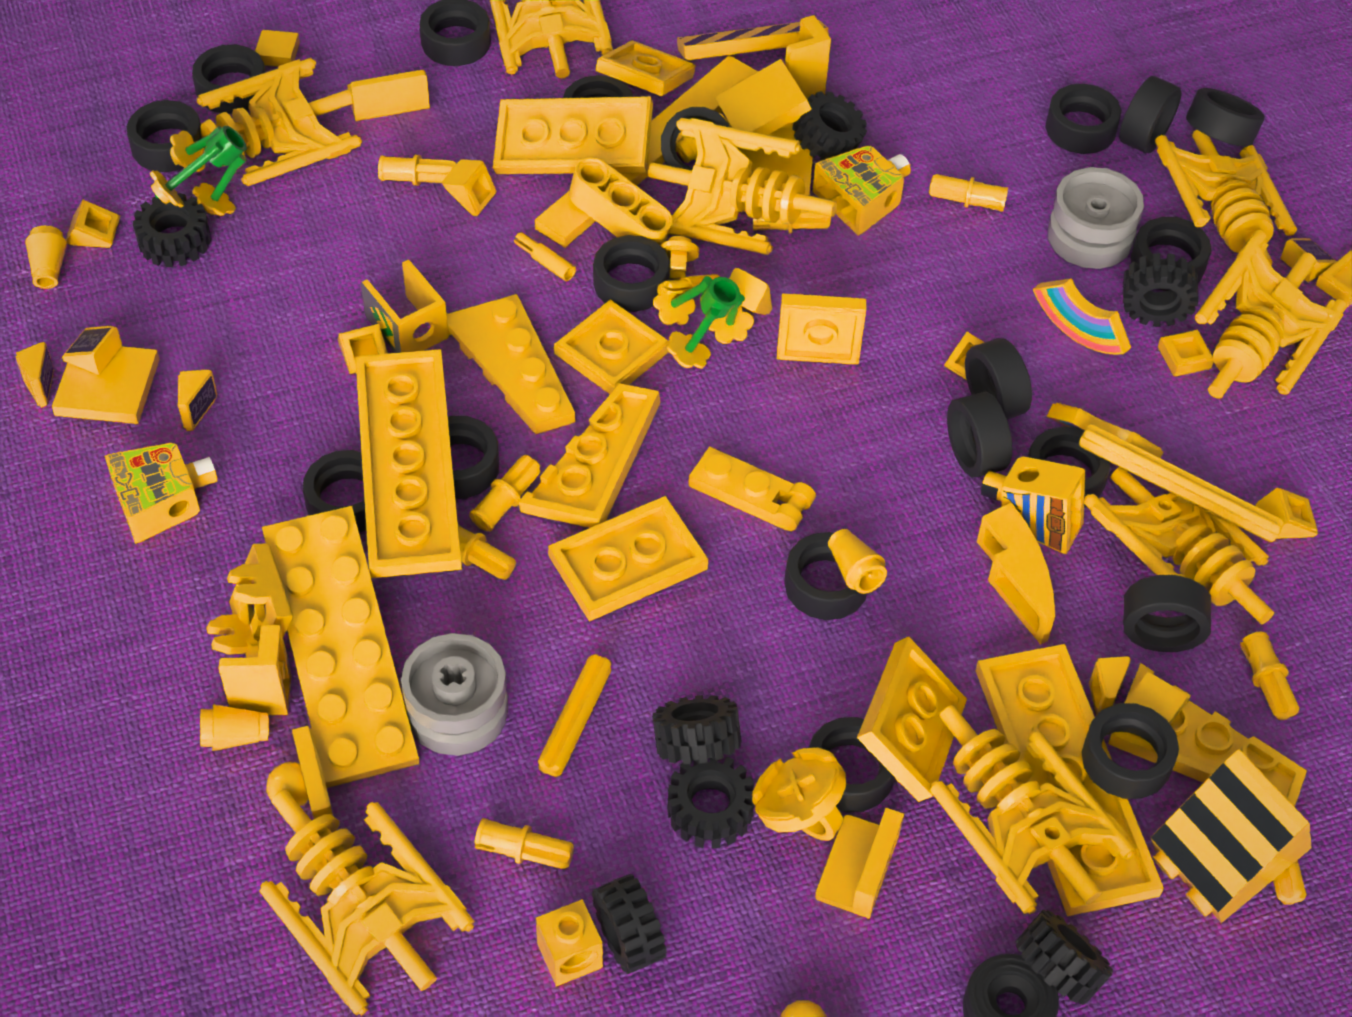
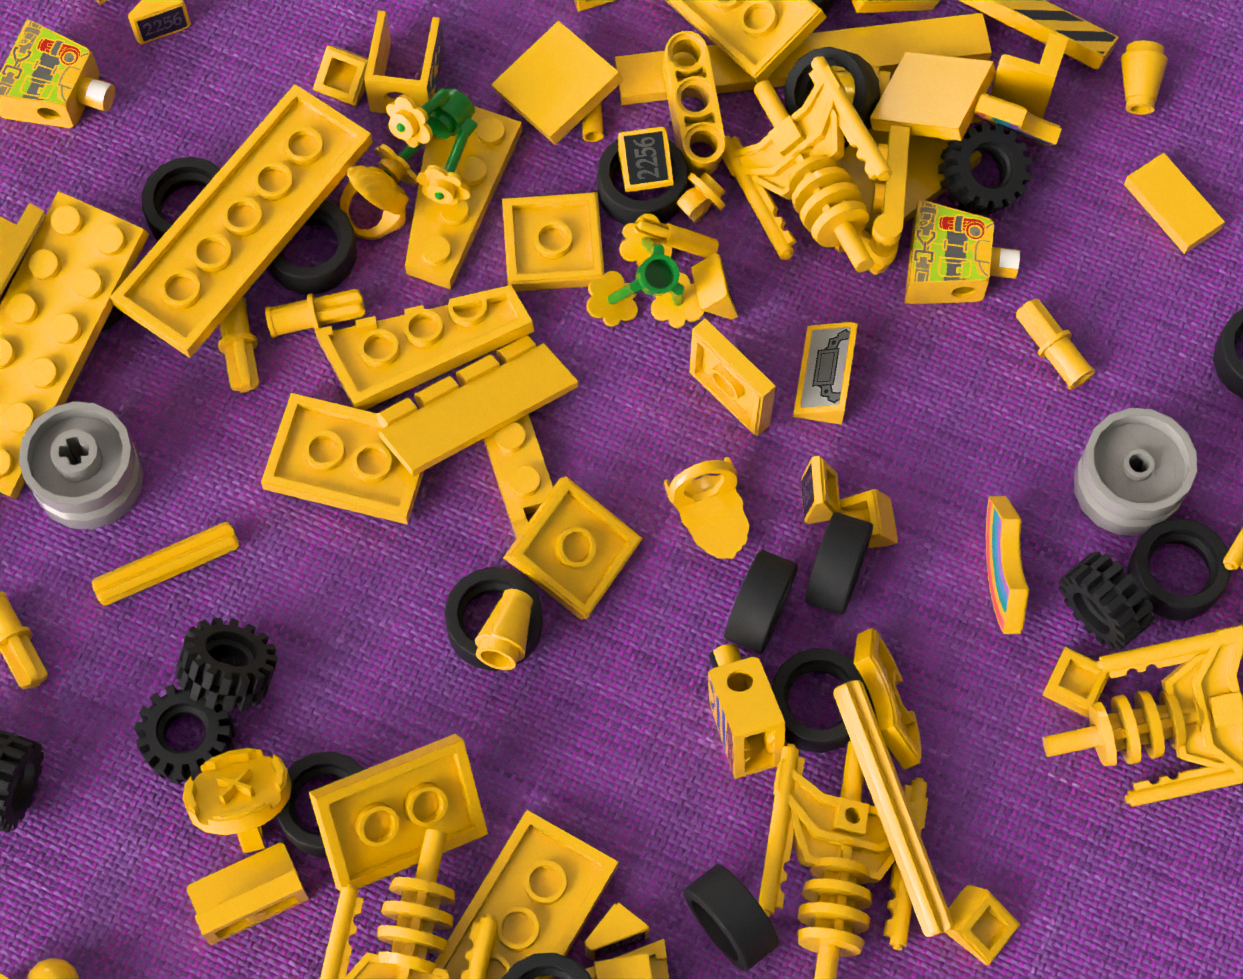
camera: 45 degrees right, 15 degrees up
(465, 321) = (444, 116): none -> plant
(480, 380) = (380, 191): none -> yellow piece
(518, 253) = (557, 82): none -> yellow tile
(630, 249) = (645, 159): none -> slope
(674, 464) = (485, 403): none -> yellow windscreen
(817, 178) = (890, 198): none -> yellow plate
(825, 78) = (1017, 119): none -> yellow tile
(830, 495) = (573, 548): none -> yellow tile
(854, 27) = (1142, 74): none -> yellow cone
(857, 280) = (825, 372): none -> slope
(885, 415) = (711, 507): none -> yellow piece
(934, 359) = (819, 491): none -> yellow slope
(945, 81) = (1174, 203): none -> yellow tile
(1018, 569) = (662, 758): yellow slope -> none

